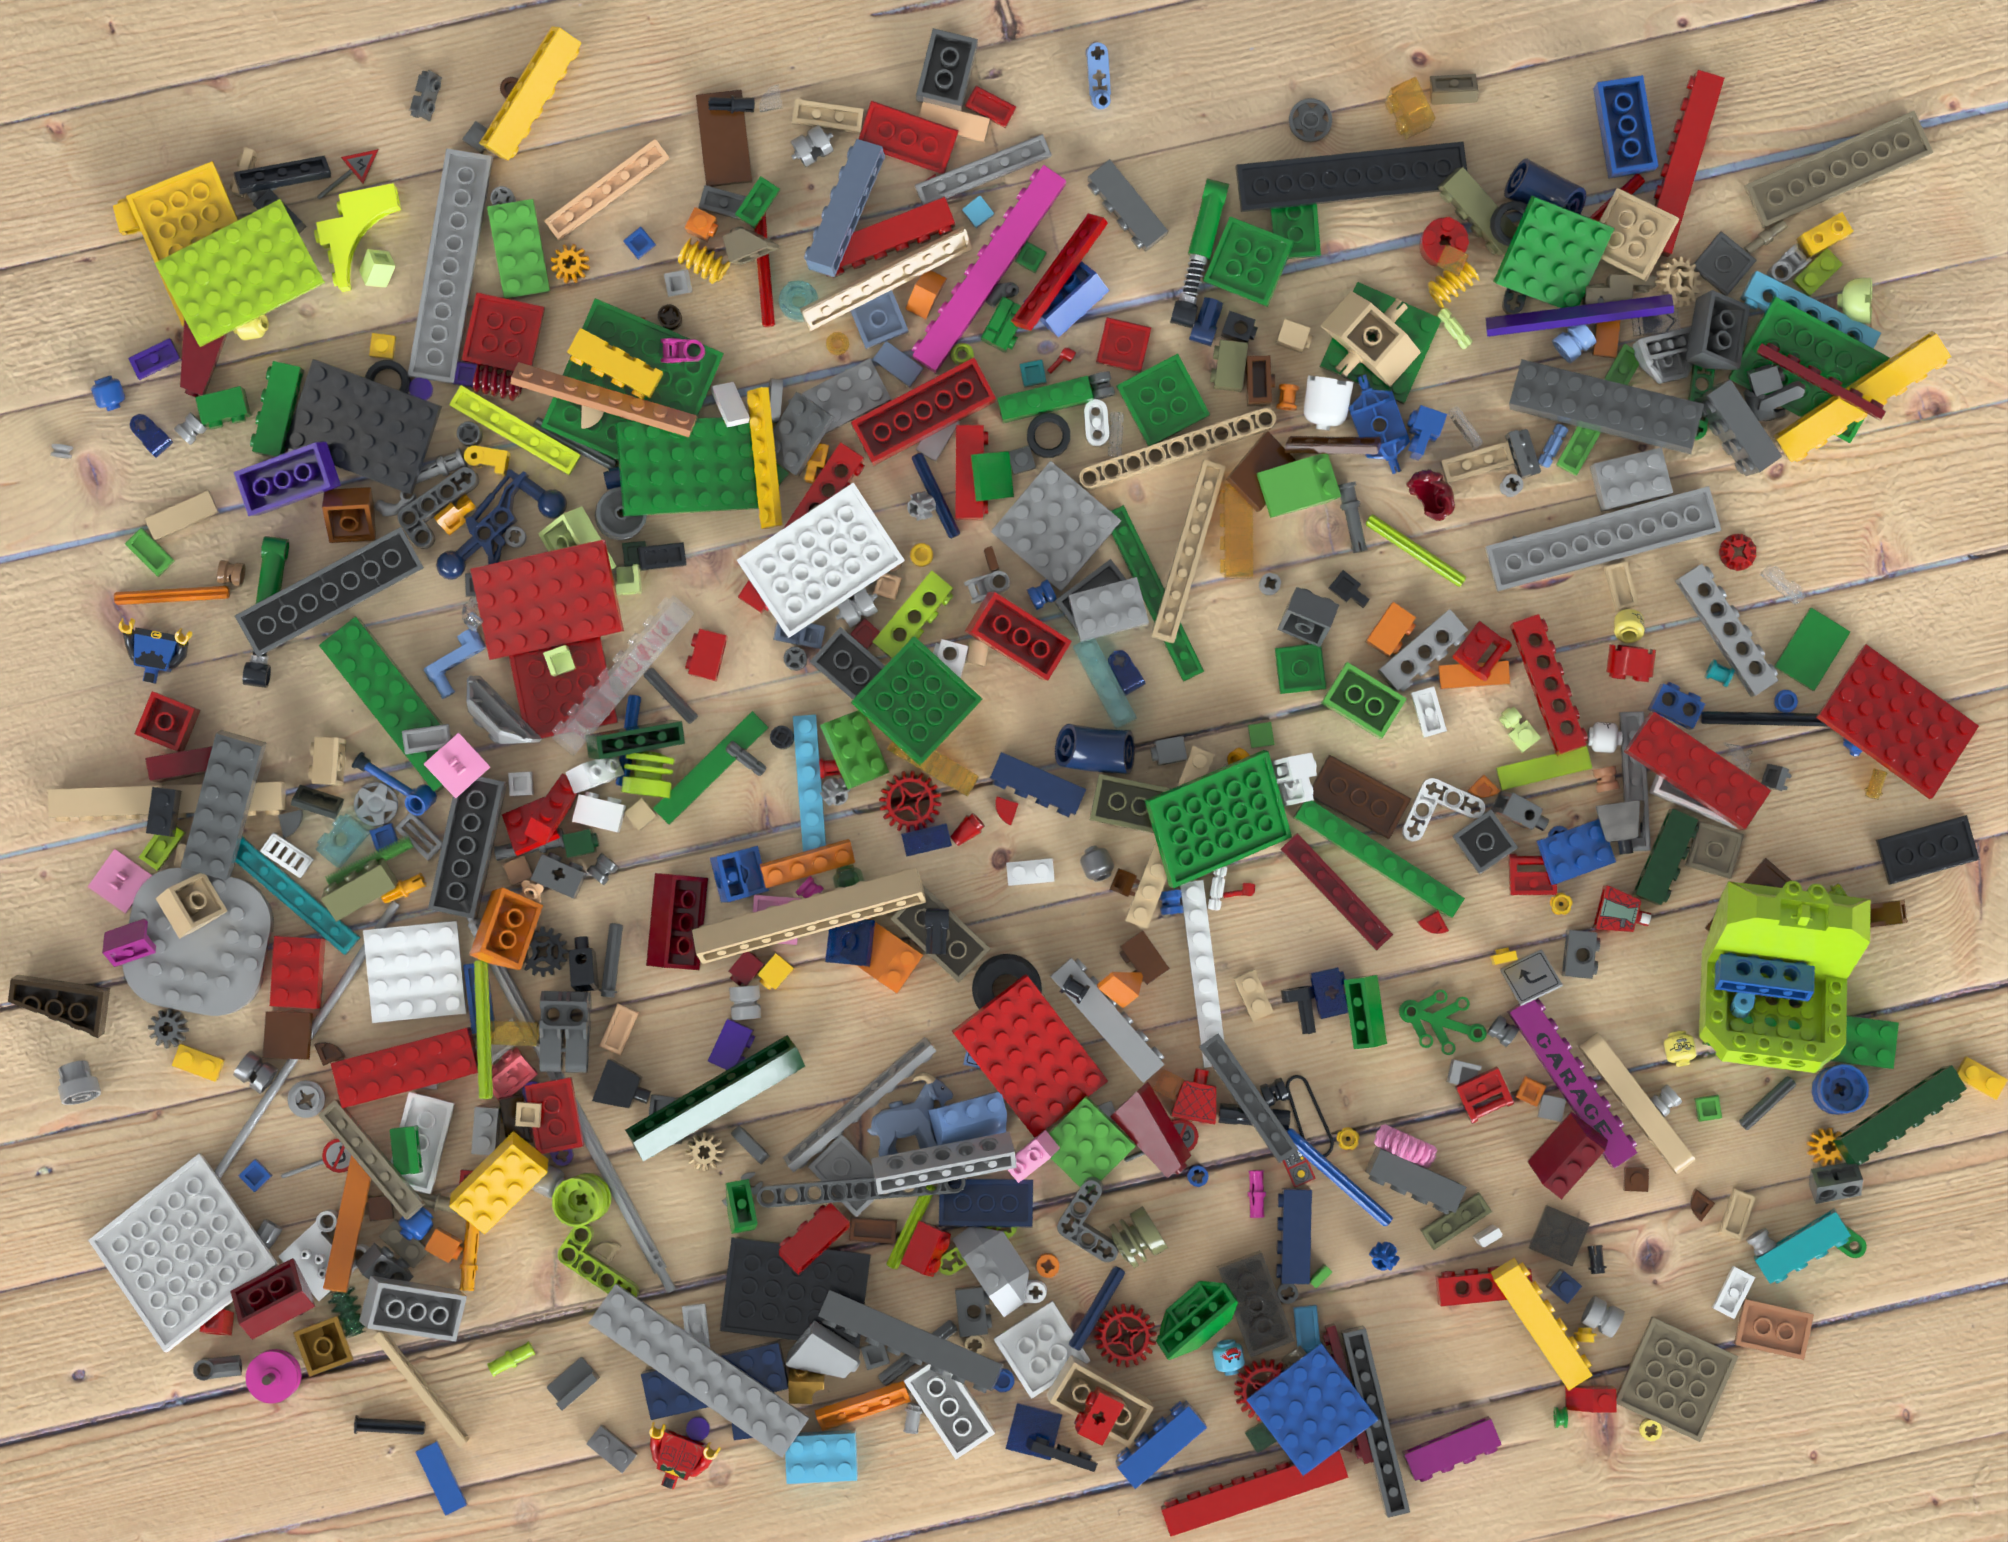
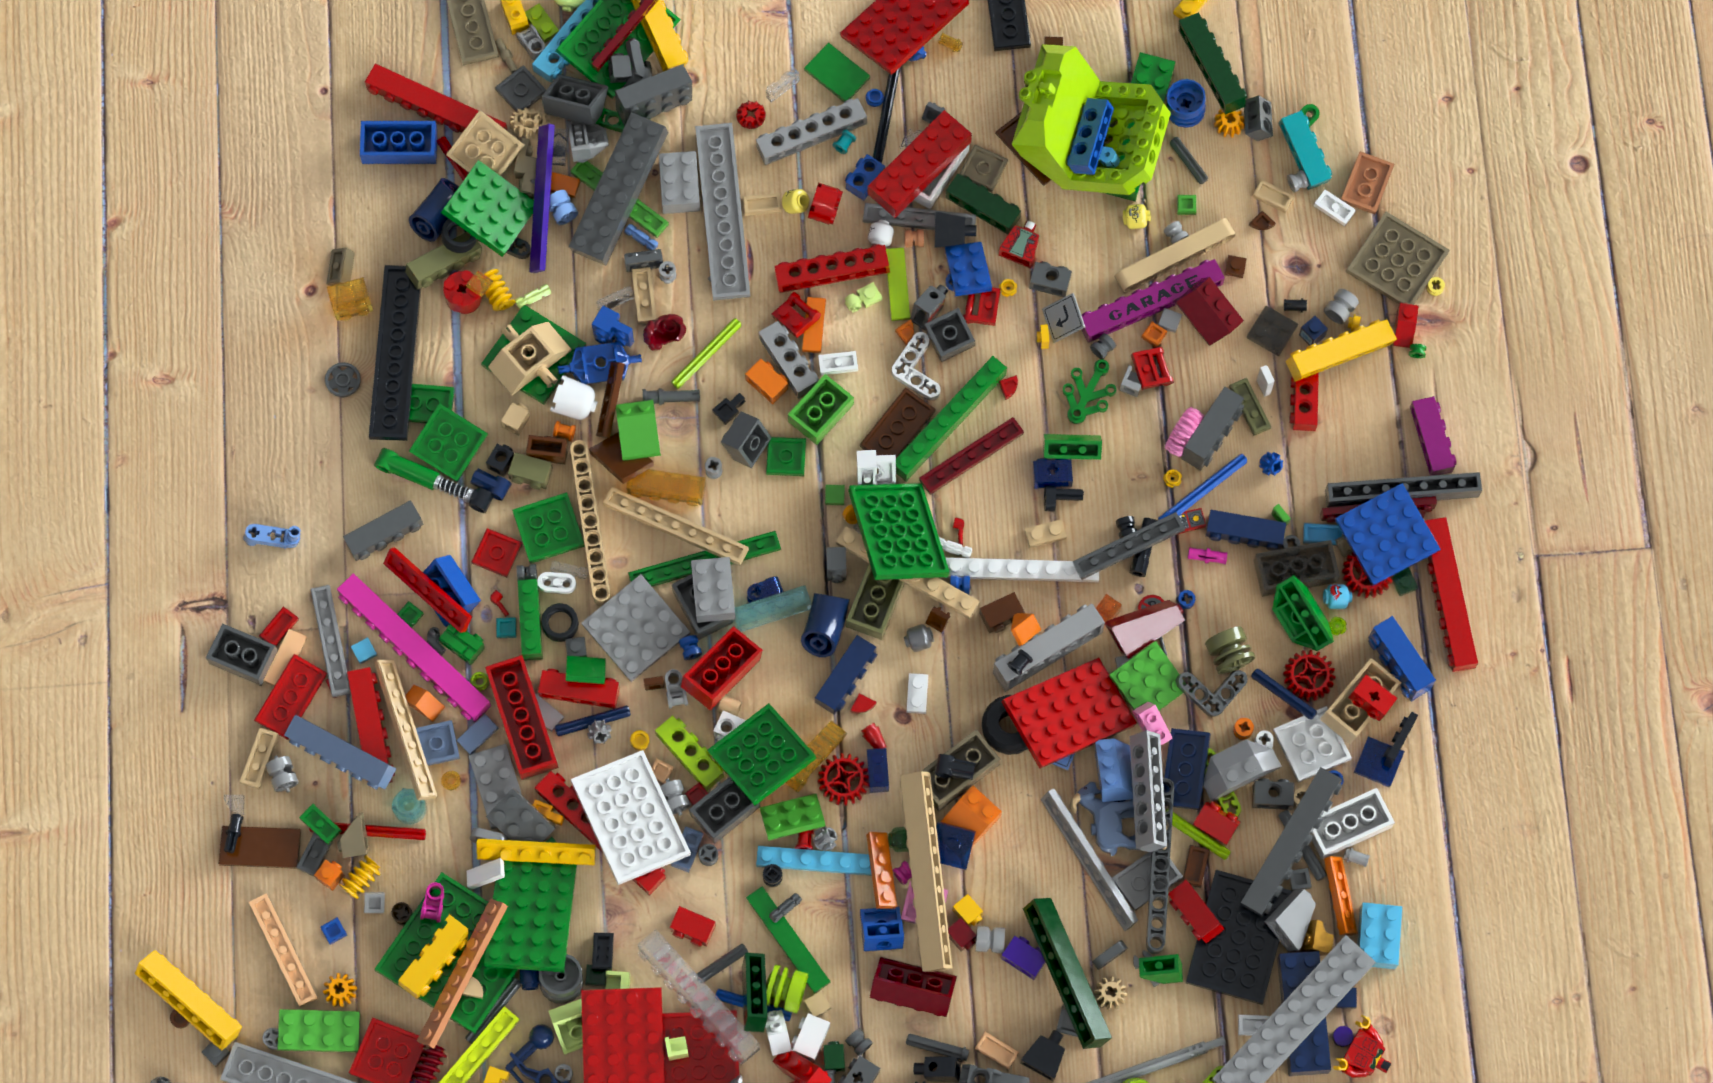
camera: 80 degrees left, 15 degrees down
(1189, 1366) = (1337, 621): none -> clear neon green plate
(1196, 1099) = (1124, 588): red torso -> none
(1316, 1106) = (1146, 498): black piece -> none

